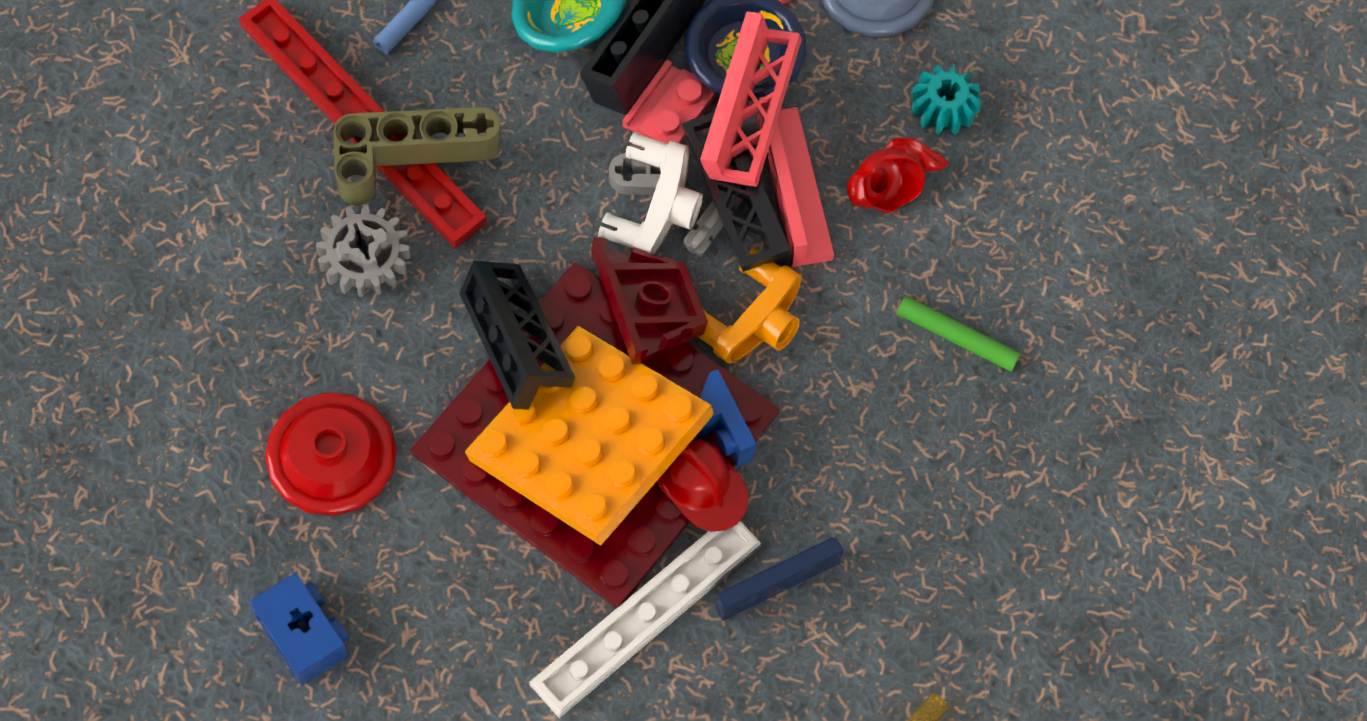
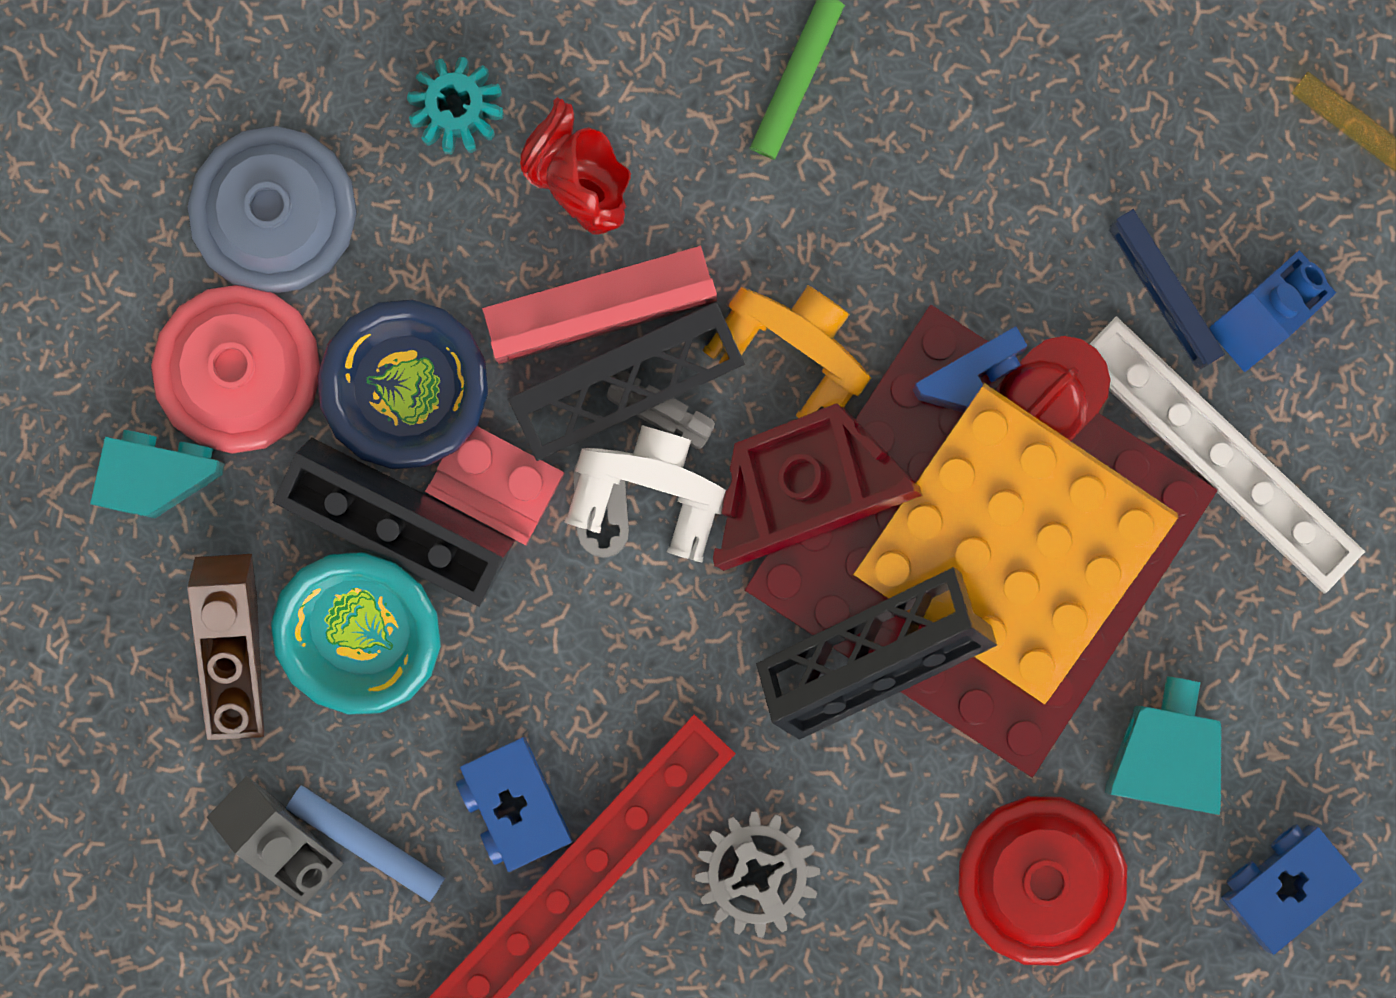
camera: 90 degrees left, 20 degrees up
(415, 148) = (609, 817): olive beam -> none
(415, 548) = (1170, 753): none -> teal torso
(448, 77) = (542, 823): none -> blue brick
(735, 97) = (506, 387): coral fence -> none
(758, 657) = (1272, 311): none -> blue slope

